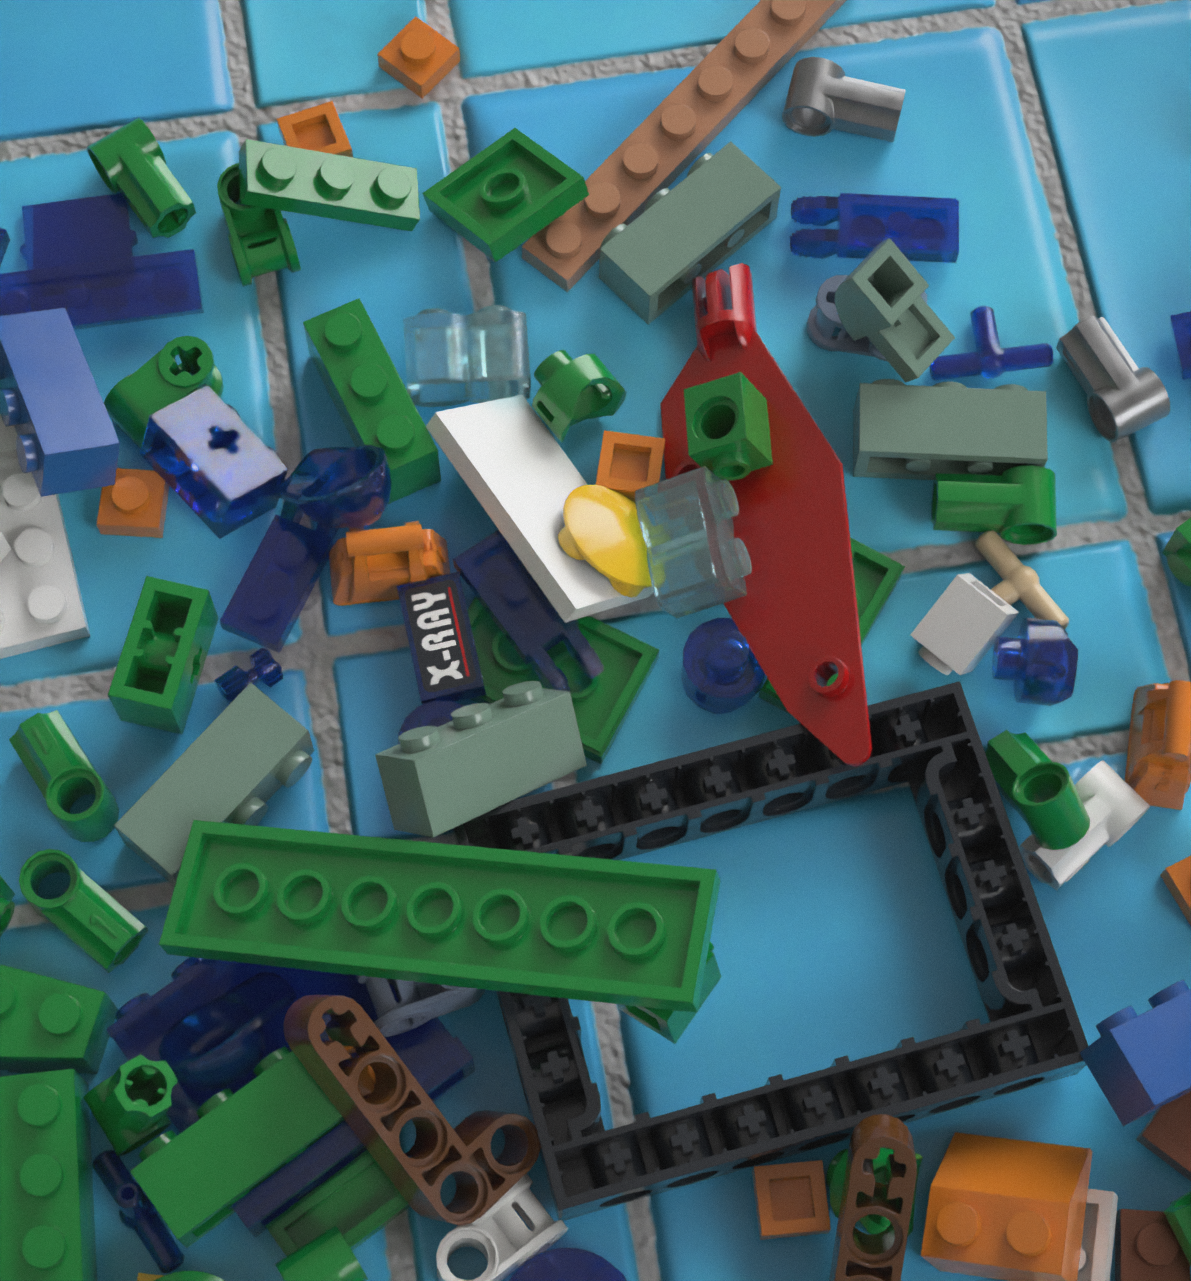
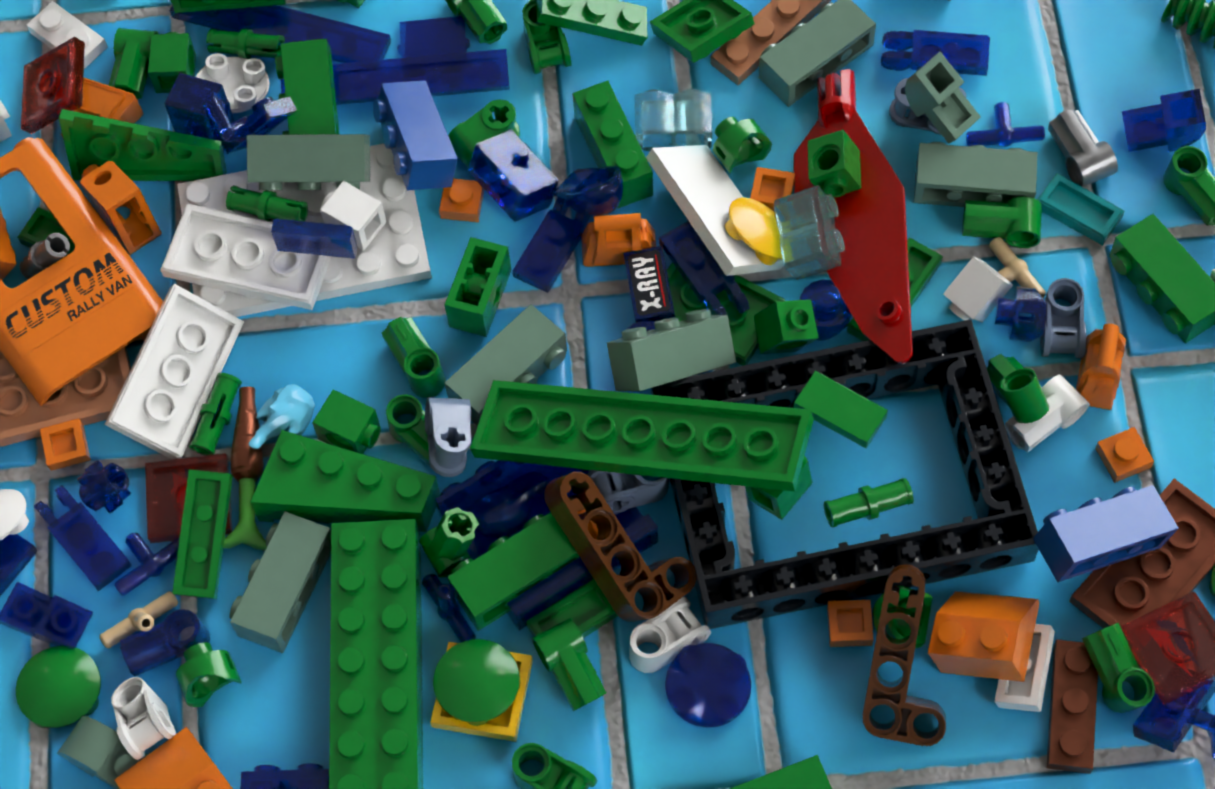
camera: 10 degrees right, 5 degrees down
(121, 912) = (448, 434): none -> sand blue piece
(262, 669) = (538, 300): clear blue piece -> none
(663, 701) = (785, 326): none -> green brick
(760, 848) = (841, 409): none -> green tile
(813, 1009) = (868, 502): none -> green pin
(1105, 677) = (1064, 326): none -> sand blue piece
(1113, 477) = (1080, 209): none -> teal tile

